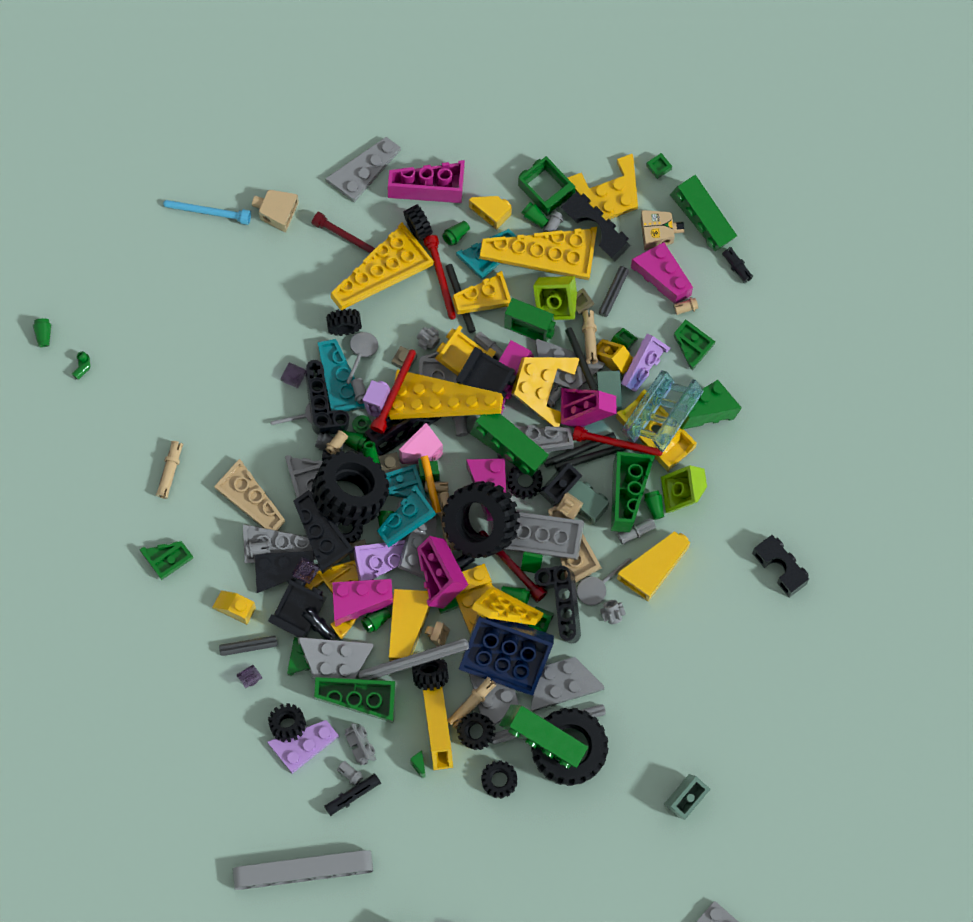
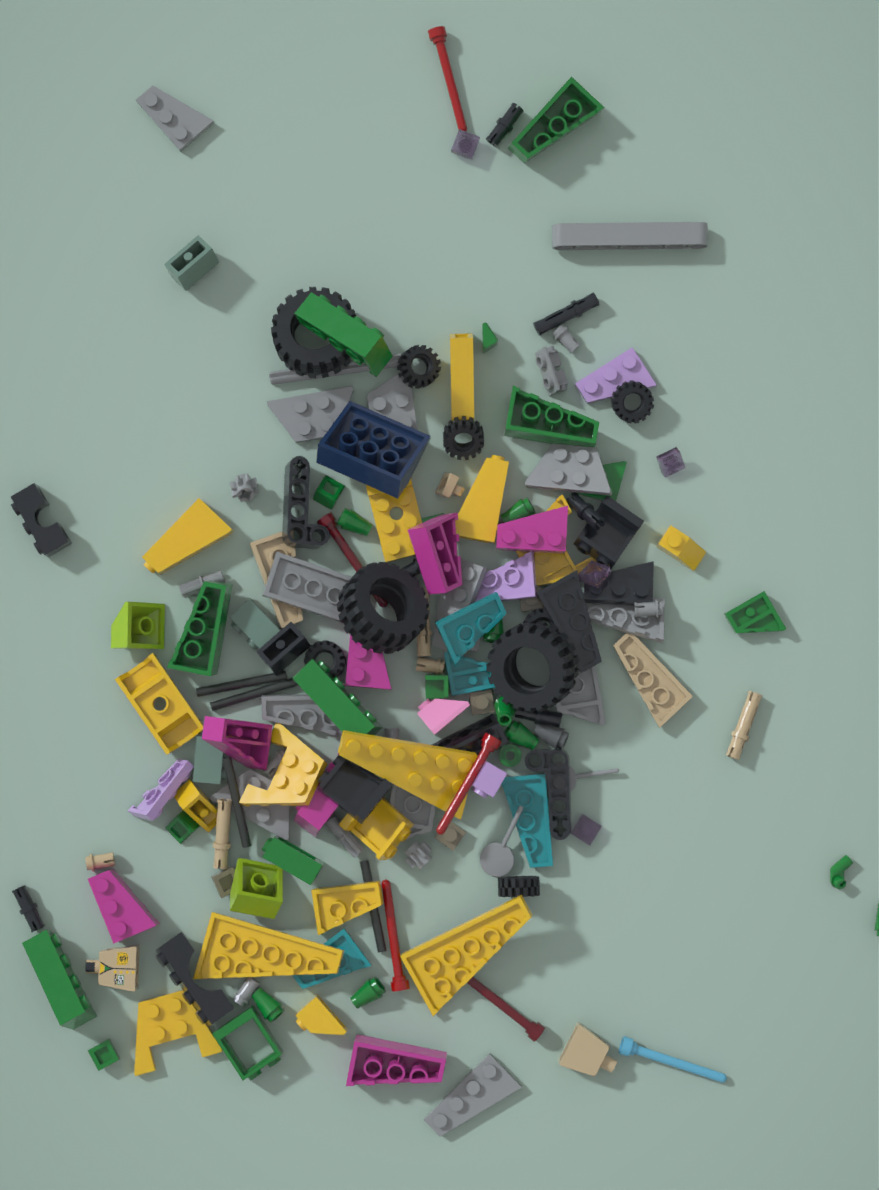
camera: 170 degrees left, 15 degrees up
(248, 645) = (668, 500): dark grey axle -> none
(336, 442) = (543, 730): tan pin -> none
(359, 390) = (508, 794): light grey pin -> none
(414, 660) = (480, 452): light grey axle -> none
(417, 222) = (413, 1009): black tyre -> none
(430, 483) = (437, 664): light orange bar -> none
(478, 695) = (413, 403): tan pin -> none
(494, 768) = (399, 298): black tyre -> none
(502, 606) = (367, 497): yellow plate -> none
(531, 562) = (330, 559): green slope -> none
(569, 506) = (276, 617): tan tile -> none
(581, 434) = (249, 710): red piece -> none
(593, 590) = (263, 520): light grey piece -> none
(613, 291) = (185, 892): dark grey axle -> none
(651, 402) = (155, 735): clear light blue fence -> none
(655, 504) = (176, 613): green cone -> none
(693, 343) = (99, 811): green wing -> none
(712, 406) = (95, 724): green wedge -> none

